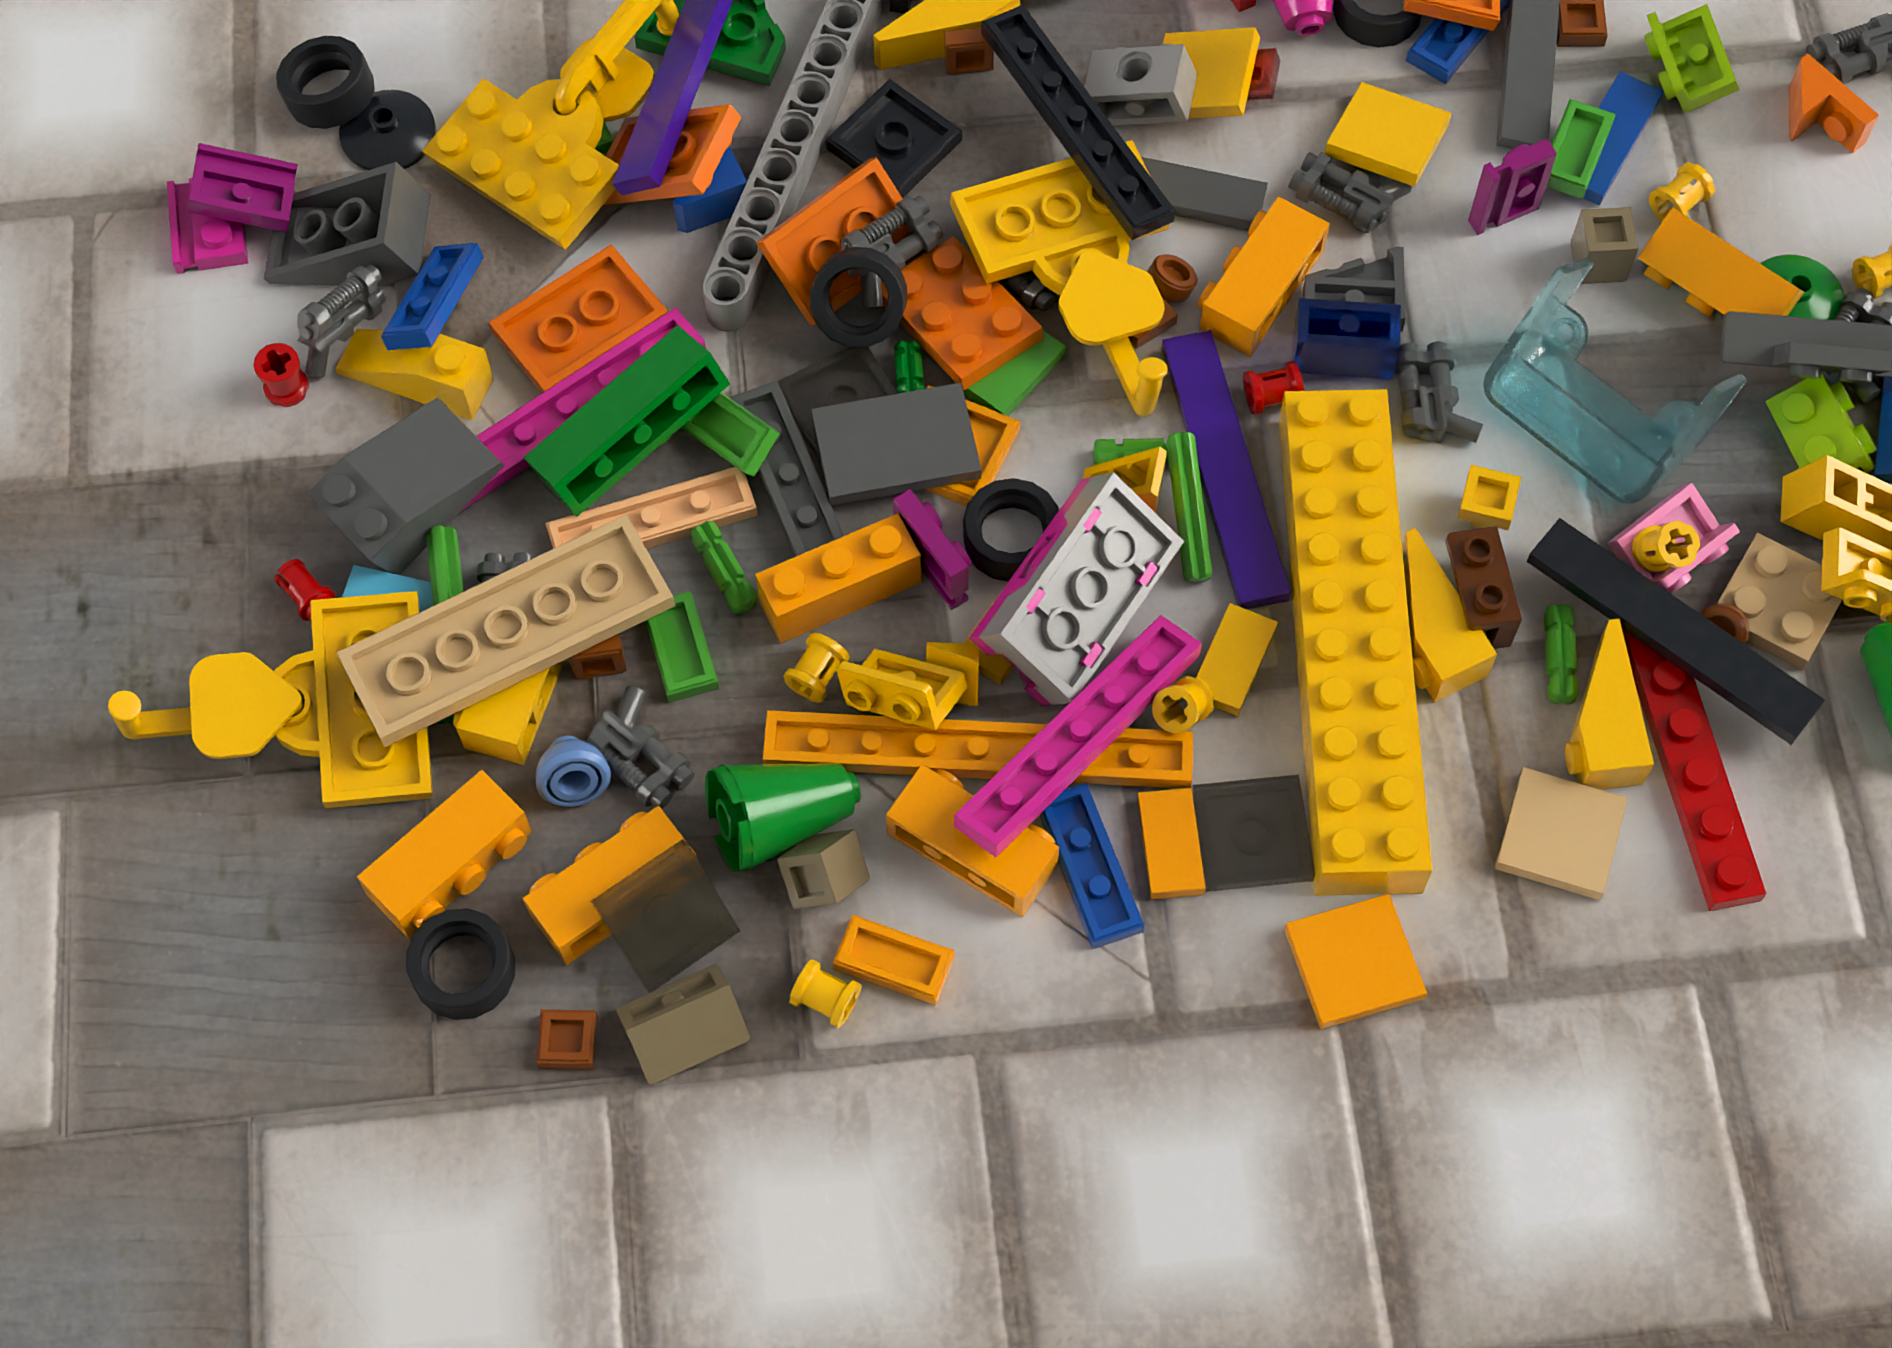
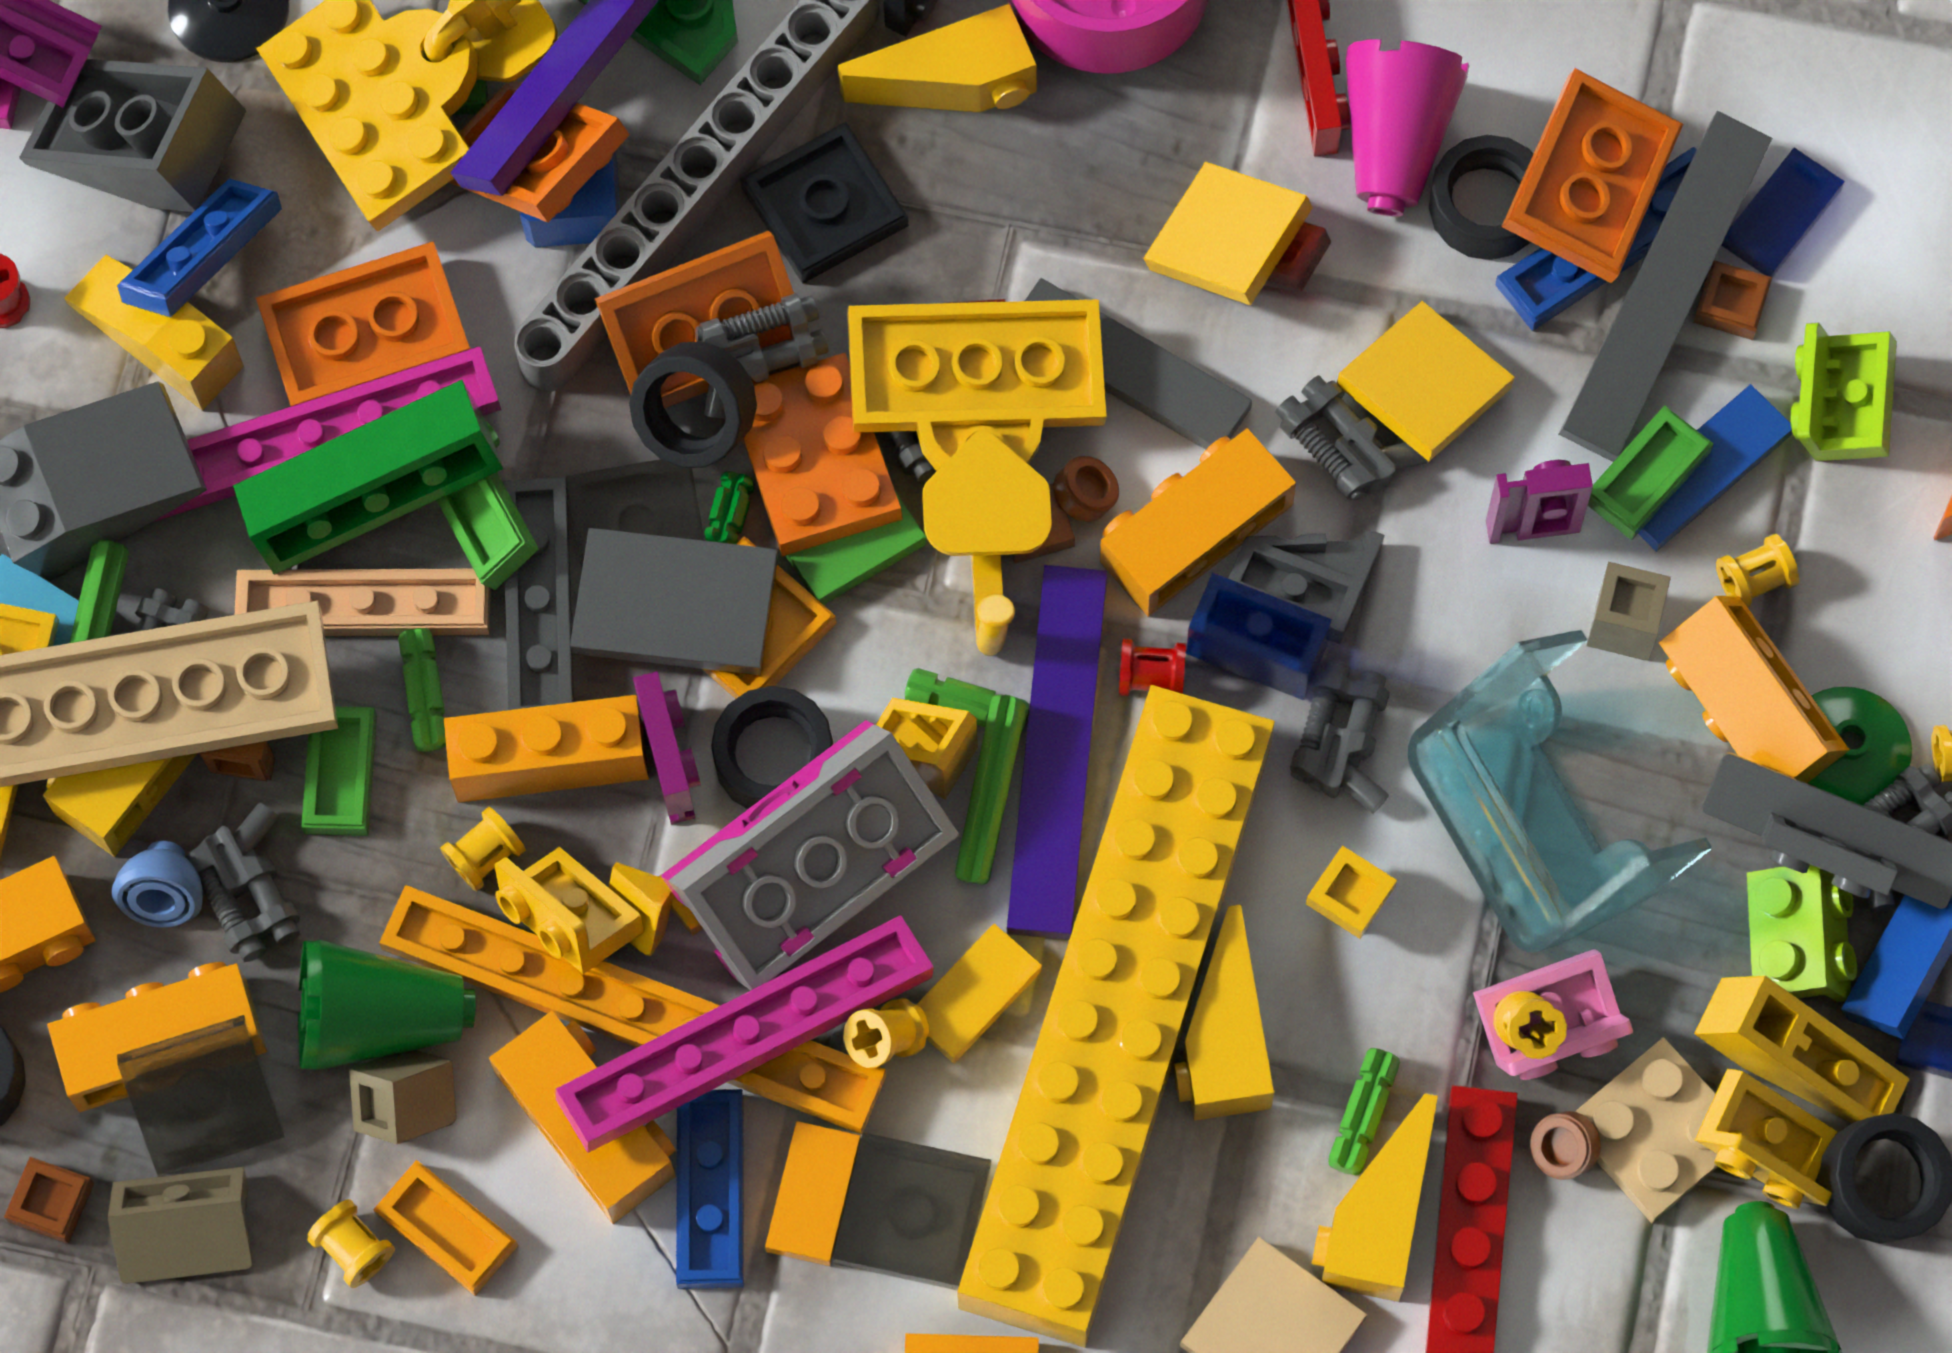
camera: 20 degrees right, 5 degrees up
(329, 321) = (75, 242): dark grey piece -> none
(967, 52) = (953, 115): dark orange tile -> none
(1078, 122) = (1037, 258): black tile -> none
(1142, 84) = (1139, 227): light grey brick -> none
(1484, 584) = (1294, 998): reddish brown bracket -> none
(1676, 631) = (1502, 1131): black tile -> none

